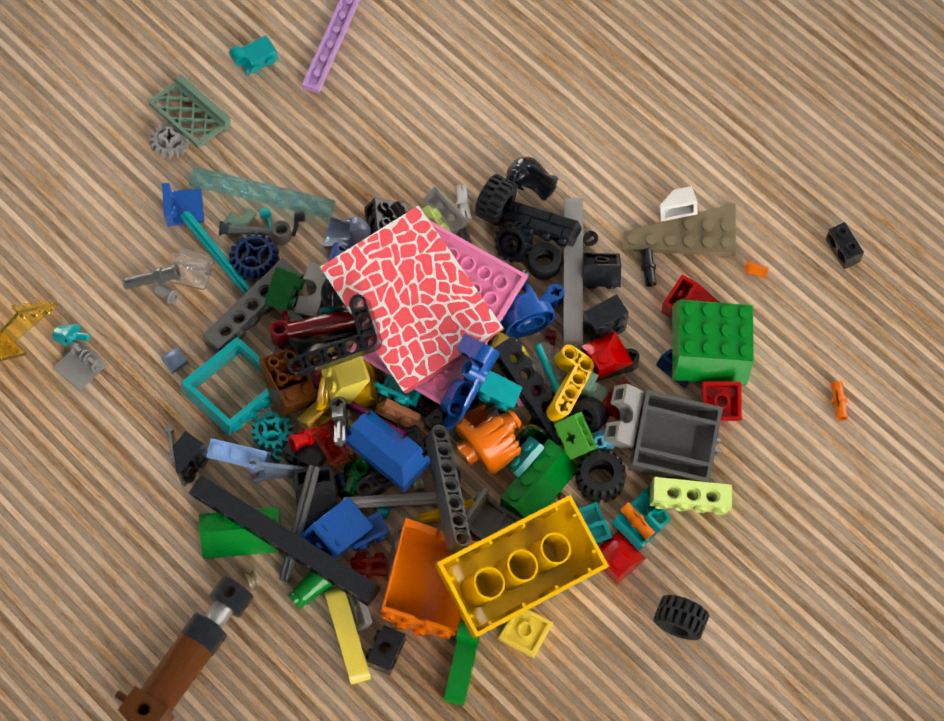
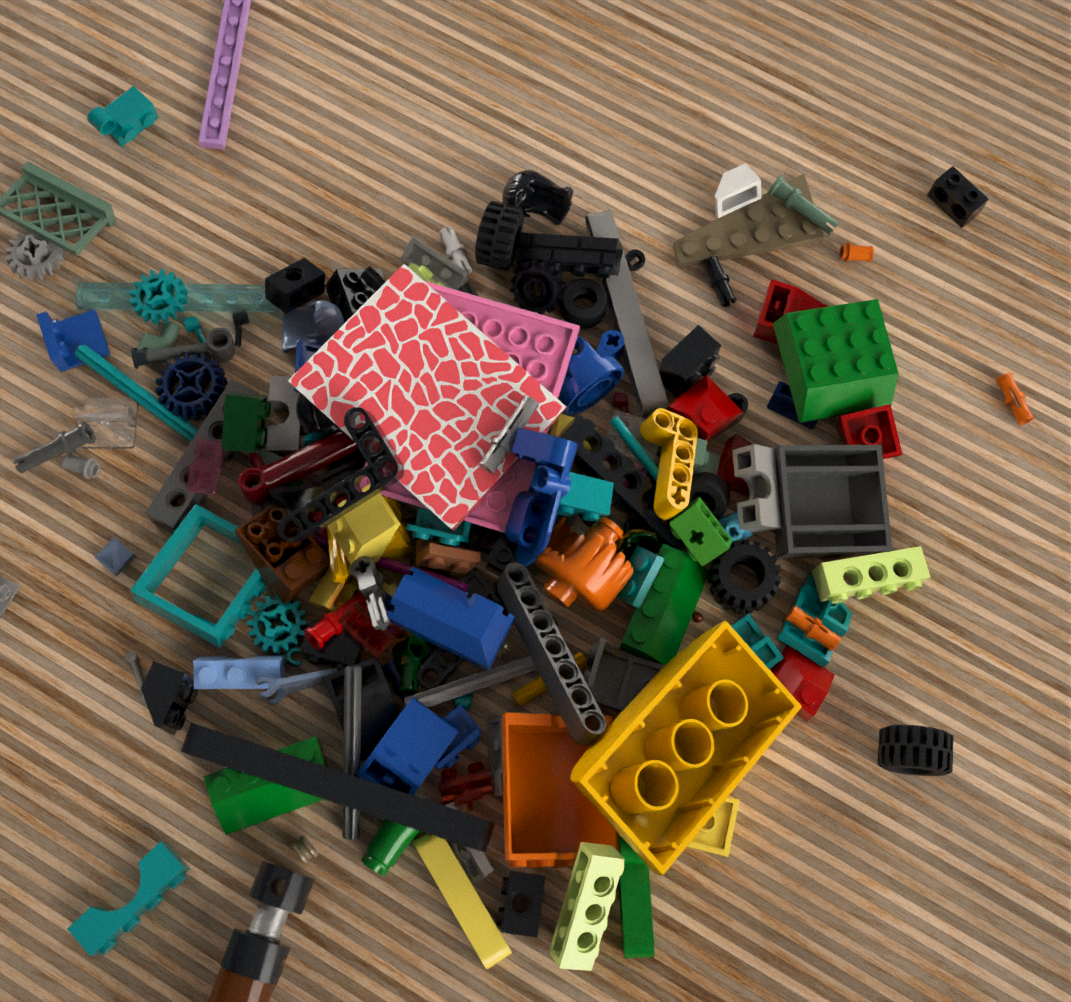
camera: 20 degrees left, 5 degrees up
(110, 594) = (100, 928): none -> teal arch
(247, 189) = (158, 294): none -> teal gear
(251, 313) = (206, 468): none -> clear pink slope
(343, 202) = (294, 285): none -> black brick
(435, 628) = (586, 906): none -> yellowish green brick
(452, 342) = (502, 444): none -> light grey pin
(601, 270) = (664, 298): black slope -> none
(719, 219) = (793, 198): none -> sand green pin

